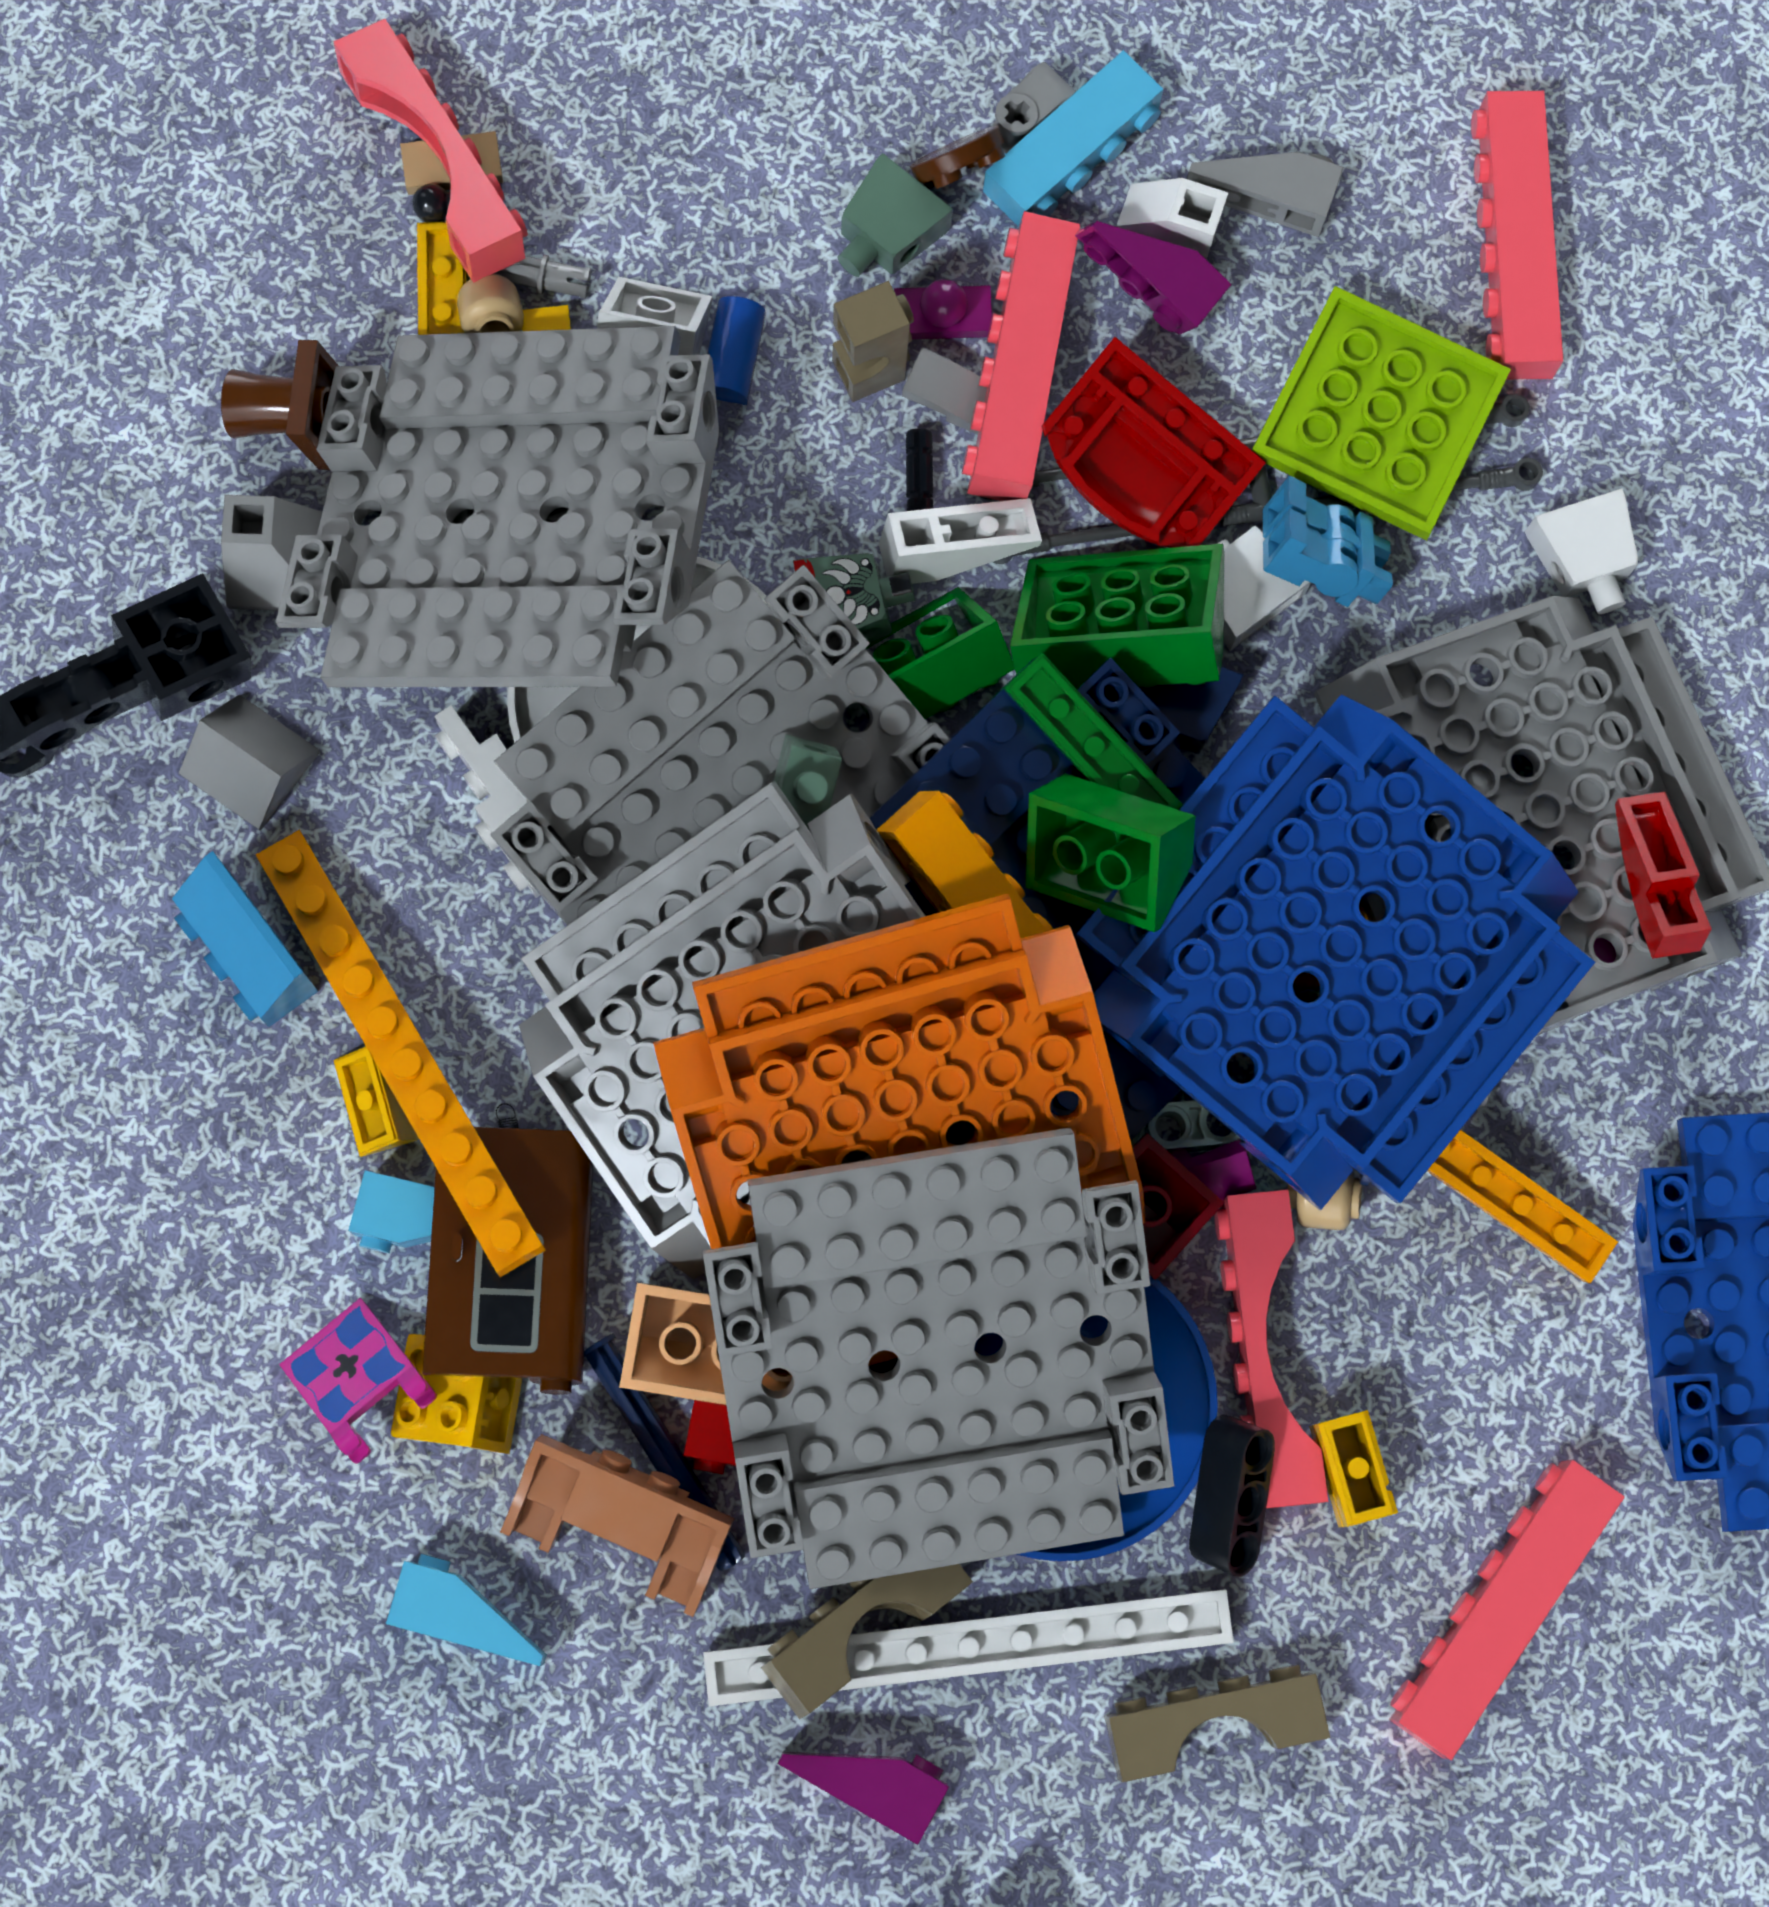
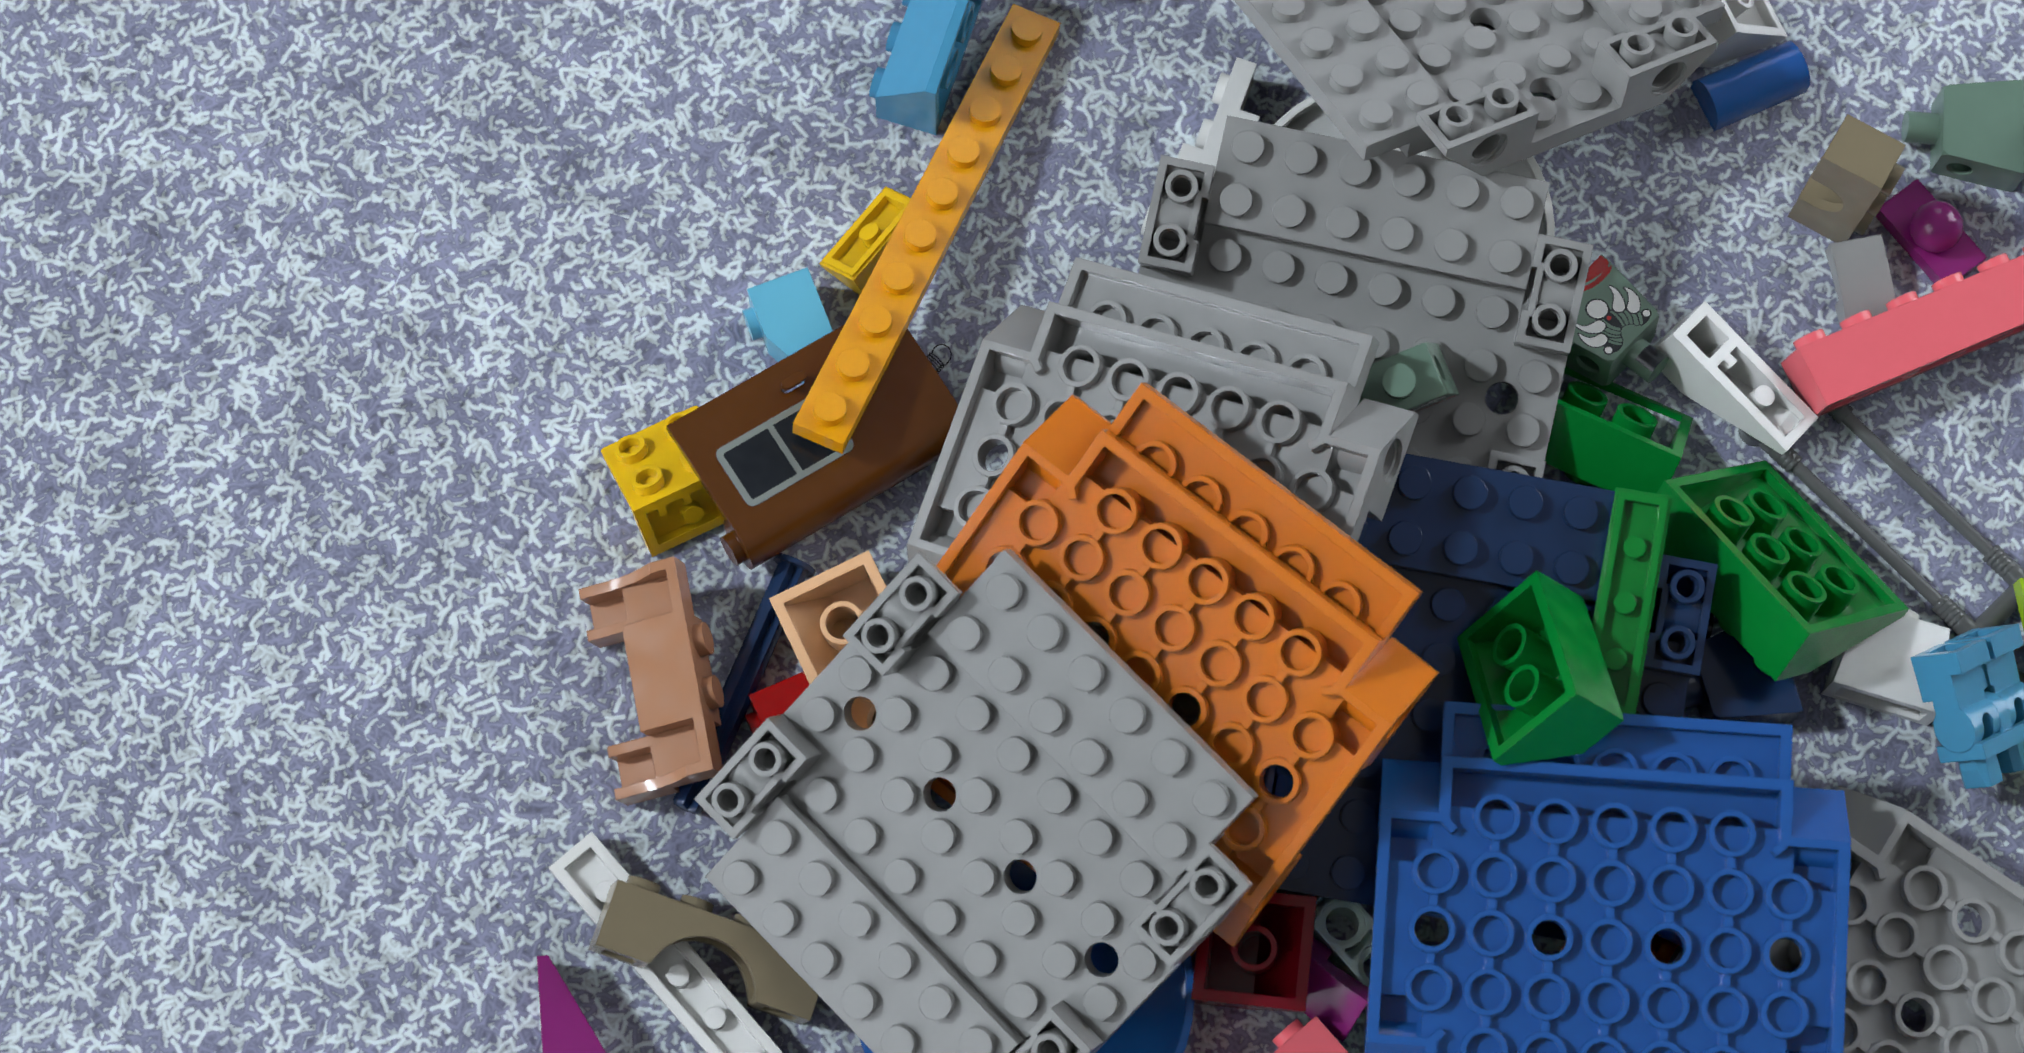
camera: 60 degrees right, 5 degrees down
(349, 1371) = (629, 375): dark pink flag -> none
(452, 1610) = (488, 599): medium azure slope -> none
(919, 469) = (1772, 310): black axle -> none
(950, 861) = (1424, 547): light orange brick -> none
(1147, 451) = (1941, 488): red slope -> none

